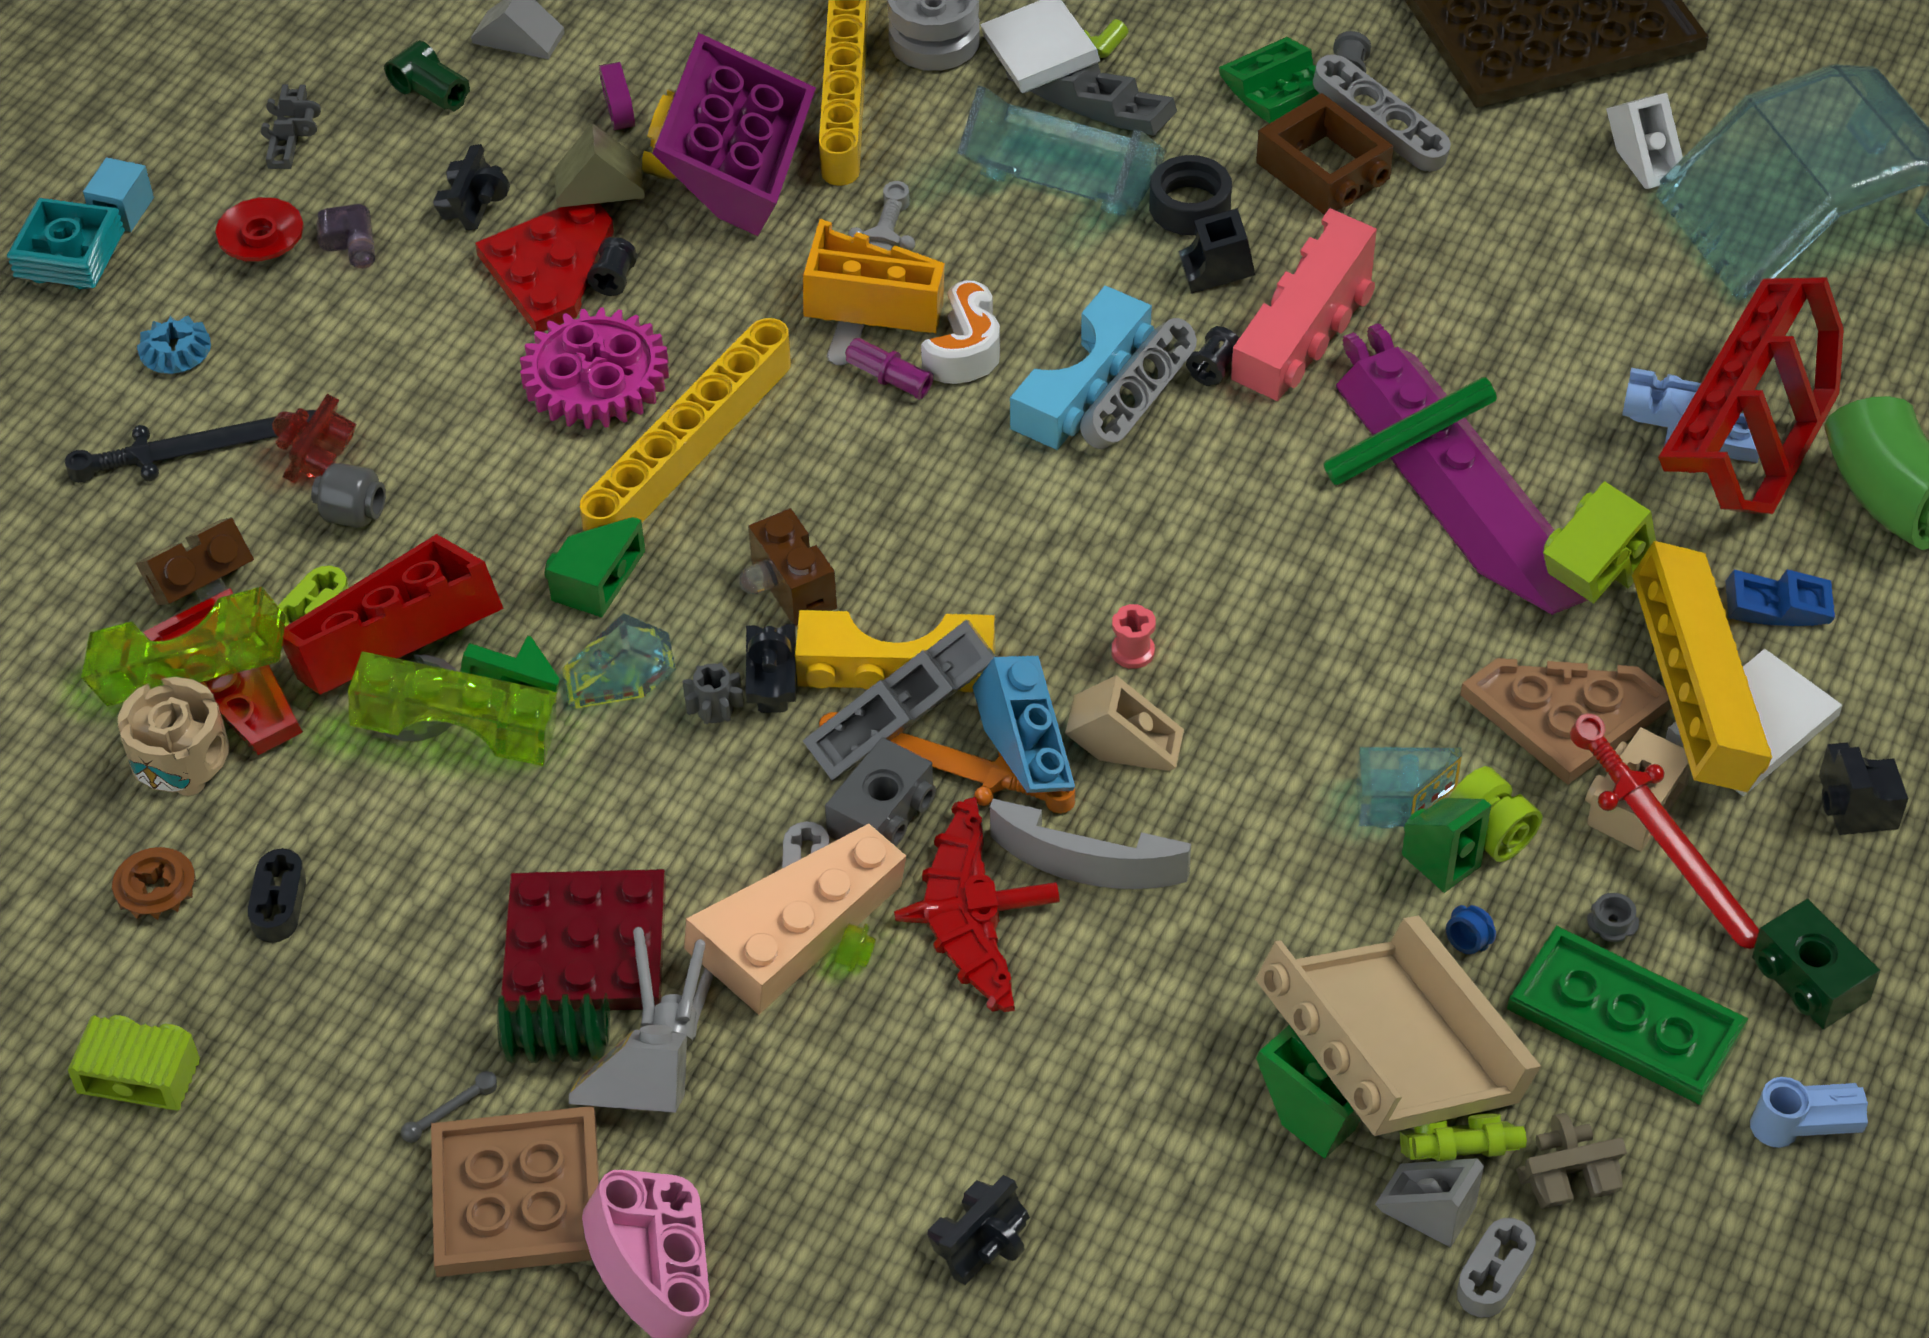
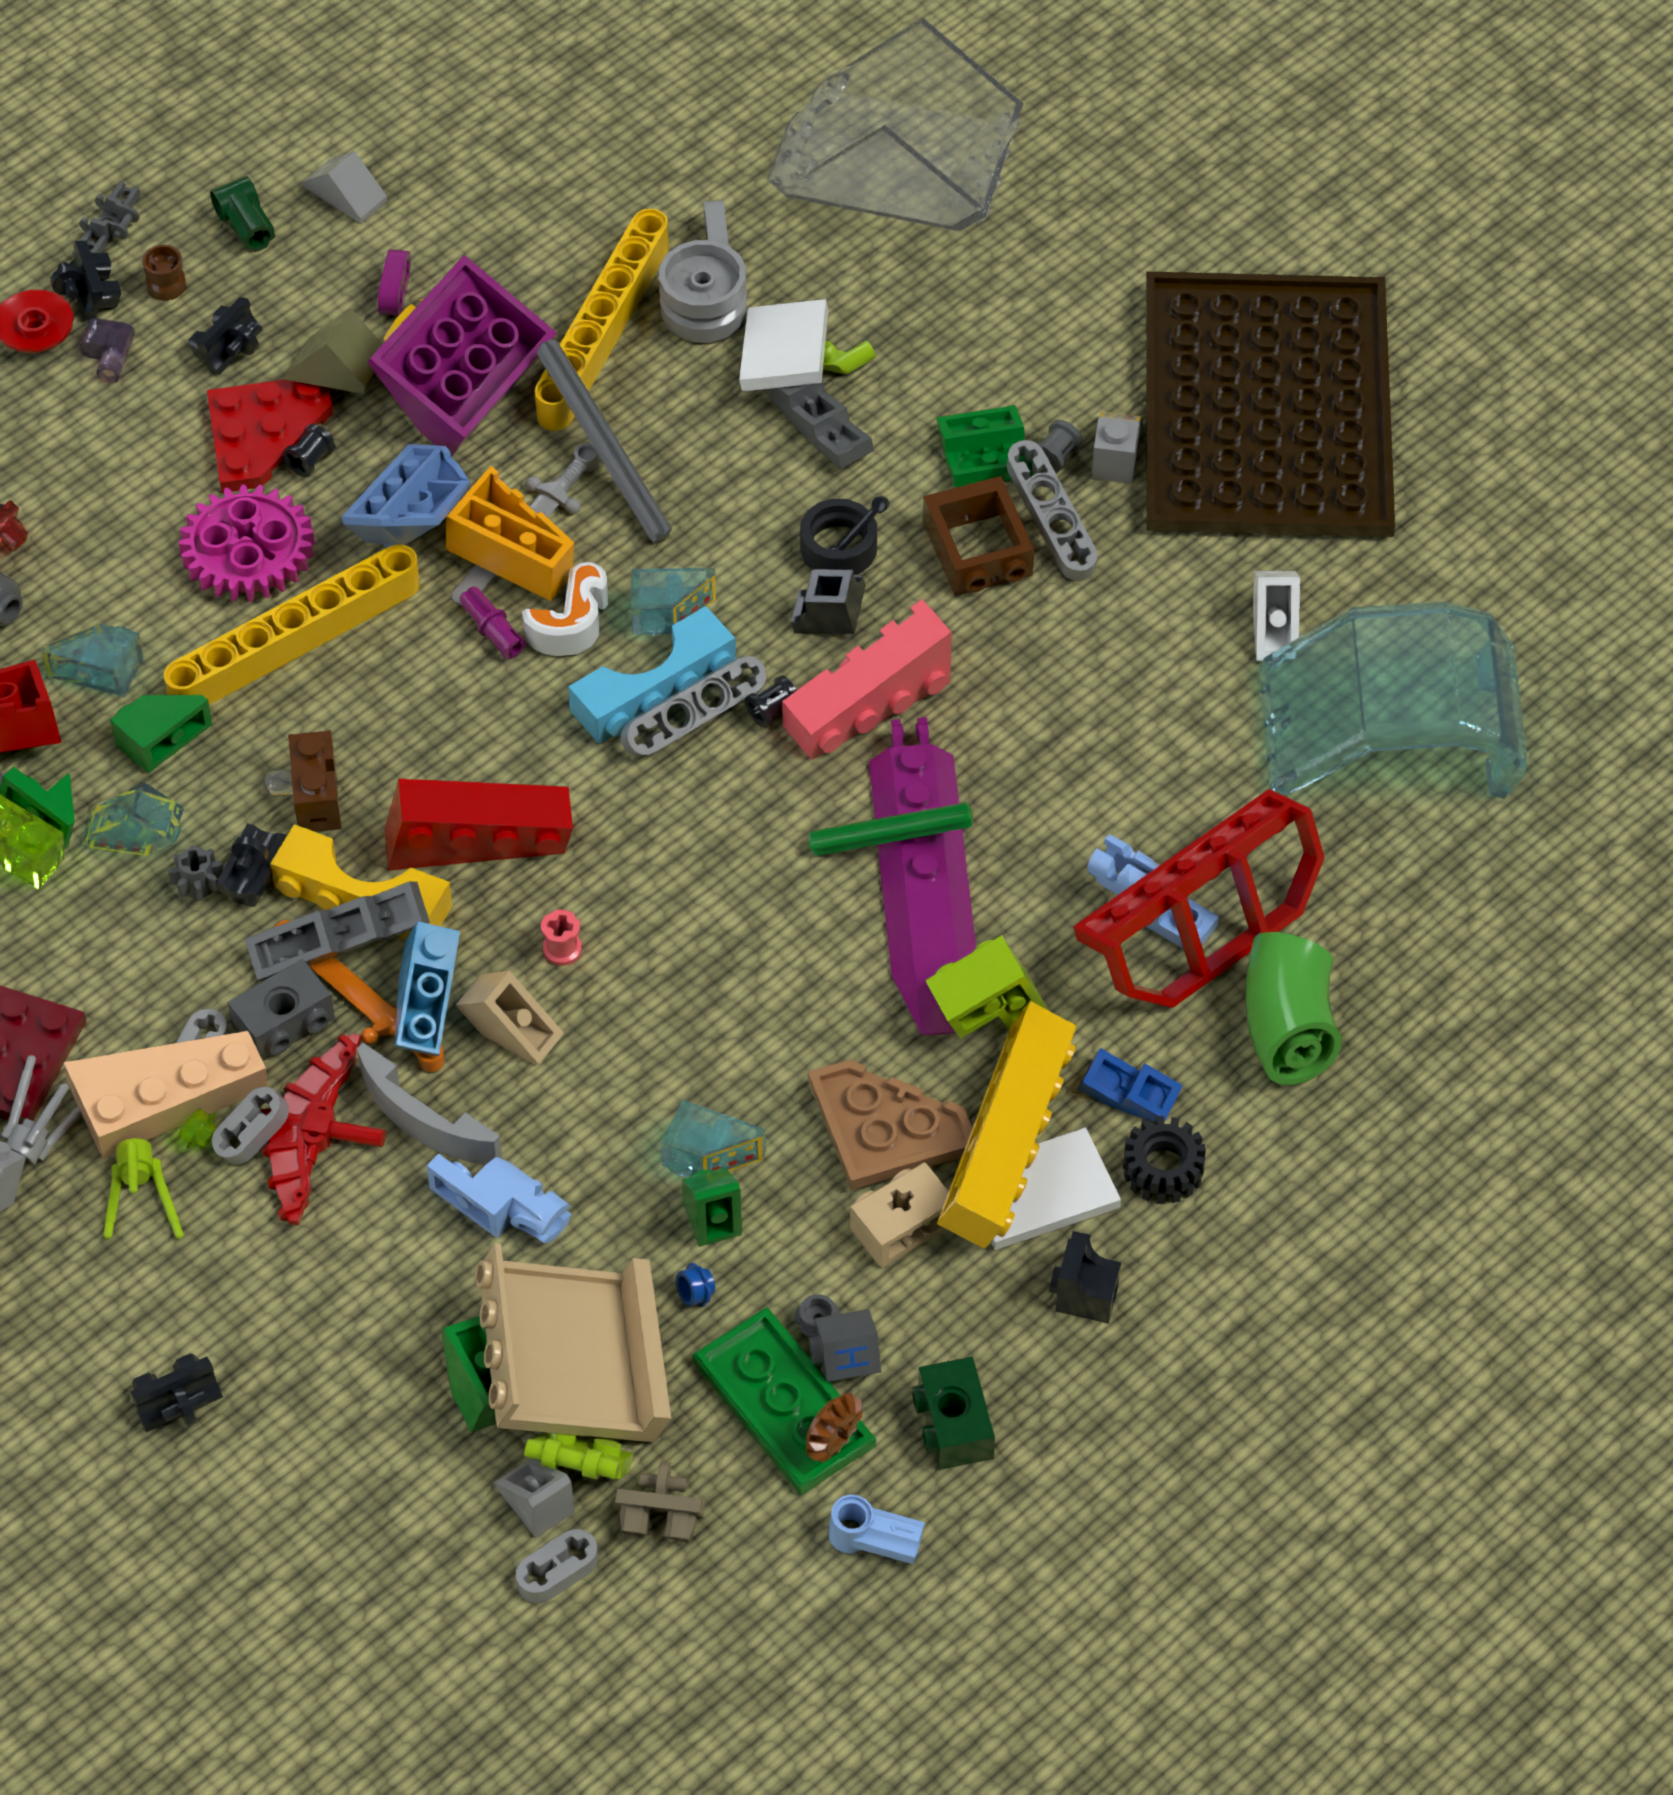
camera: 20 degrees right, 5 degrees up
(296, 178) = (82, 281): none -> black hips
(374, 149) = (164, 272): none -> reddish brown wheel
(494, 519) = (95, 658): none -> clear light blue slope
(752, 272) = (408, 496): none -> medium blue wedge
(808, 1008) = (134, 1168): none -> lime plant
(901, 919) = (250, 1125): none -> light grey beam
(914, 170) = (604, 440): none -> dark grey axle
(981, 554) = (474, 822): none -> red wedge
(1054, 294) = (668, 596): none -> clear light blue slope
(1059, 153) = (740, 457): clear light blue windscreen -> none
(1216, 910) = (500, 1197): none -> light blue plate
(1227, 145) = (878, 505): none -> black hinge
(1406, 43) = (1116, 447): none -> light grey slope
(1511, 819) = (767, 1197): lime wheel -> none
(1632, 787) = (891, 1256): red sword -> none
(1668, 933) = (846, 1345): none -> dark grey brick
(1716, 1015) = (833, 1427): none -> dark orange gear
(1855, 674) = (1169, 1138): none -> black tyre

